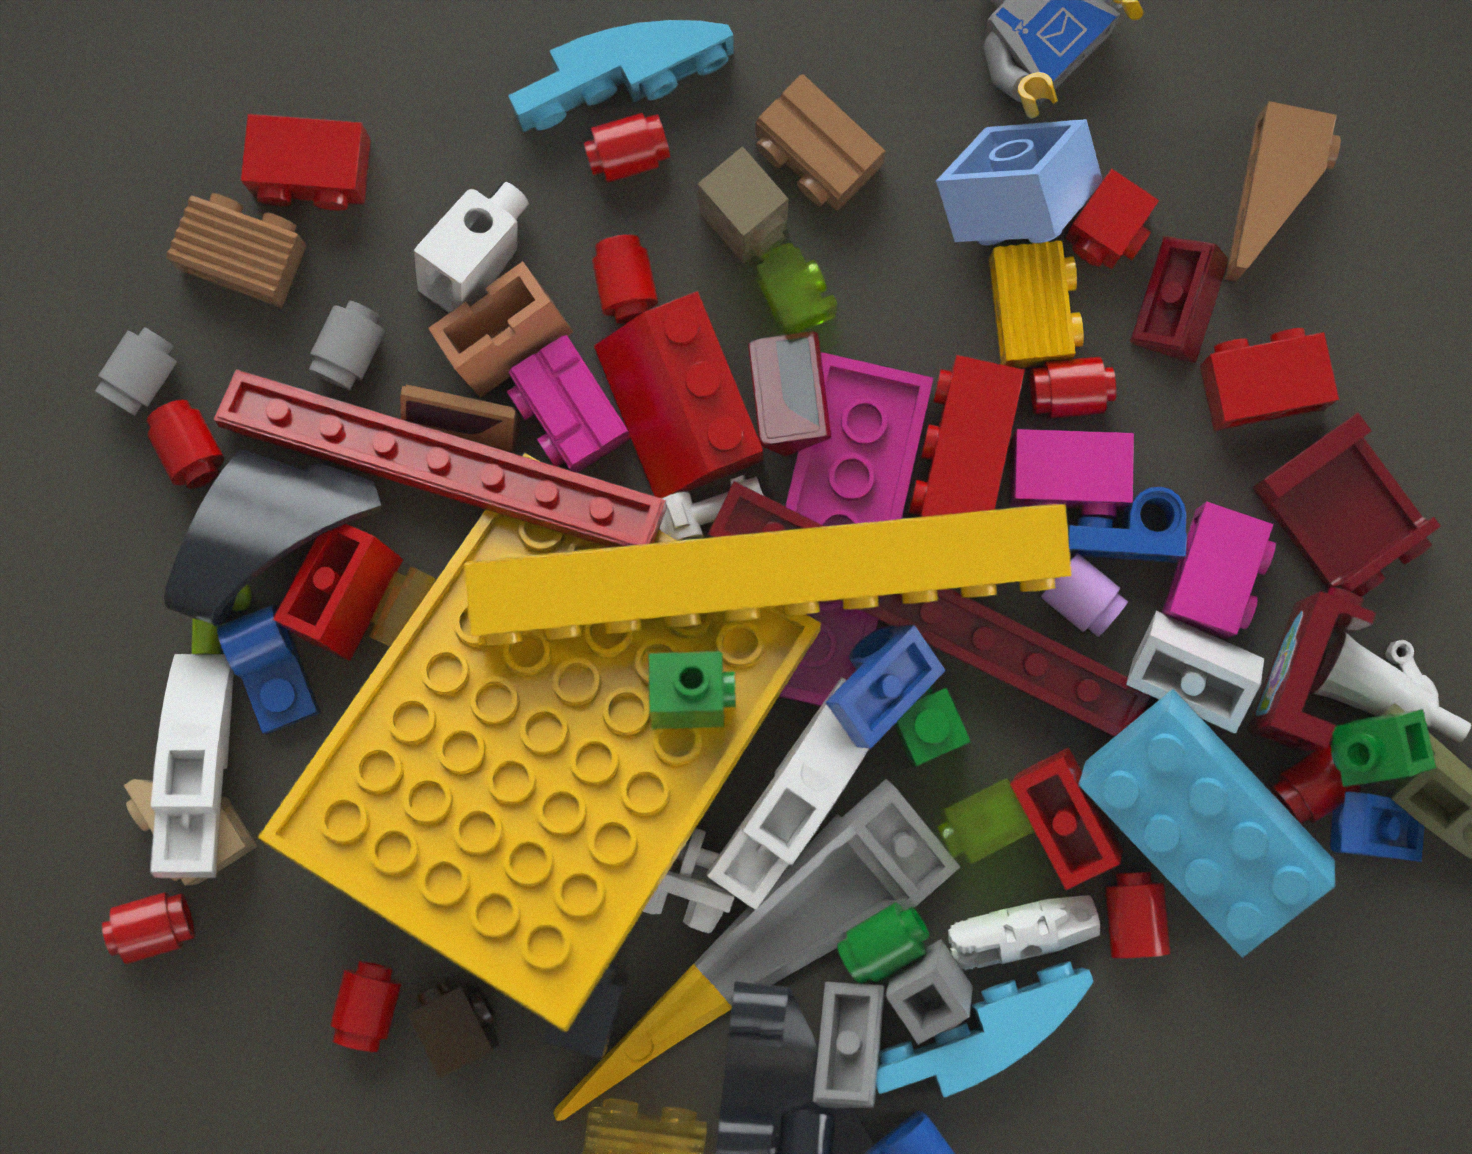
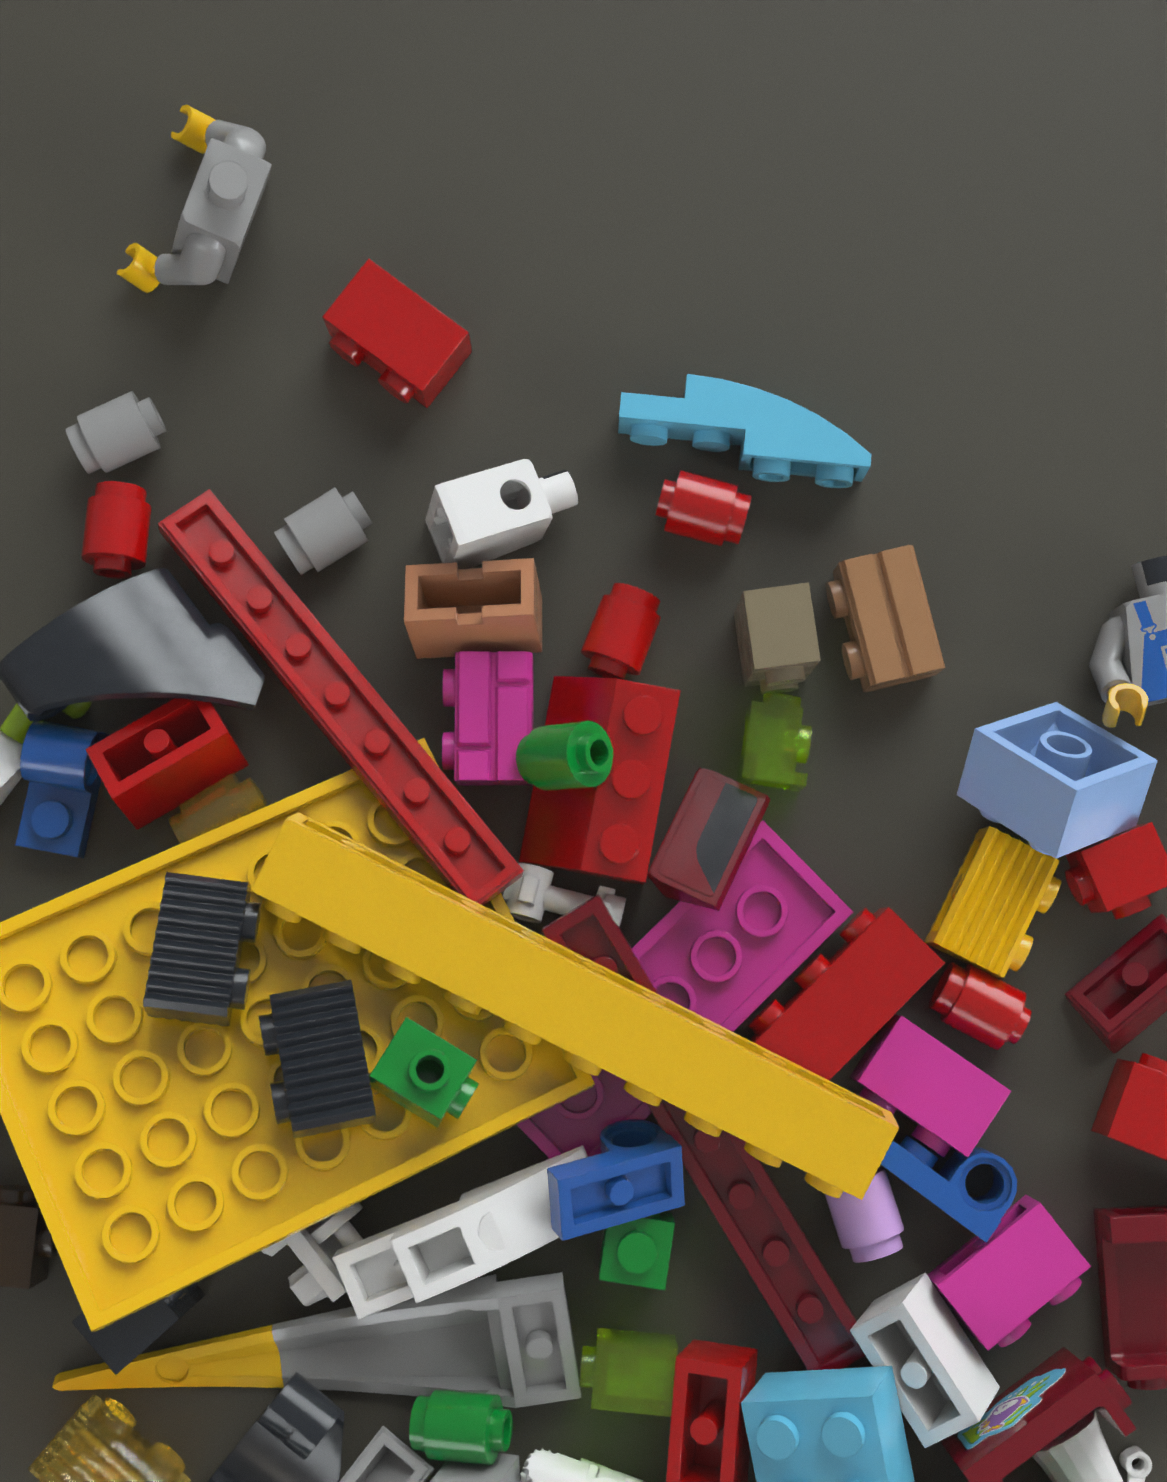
camera: 30 degrees right, 0 degrees up
(105, 148) = (216, 210): none -> light grey torso
(237, 249) = (280, 378): medium nougat brick -> none
(461, 416) = (386, 668): medium nougat slope -> none
(461, 706) = (200, 948): none -> black brick
(604, 728) = (320, 1059): none -> black brick
(642, 393) = (565, 756): none -> green brick

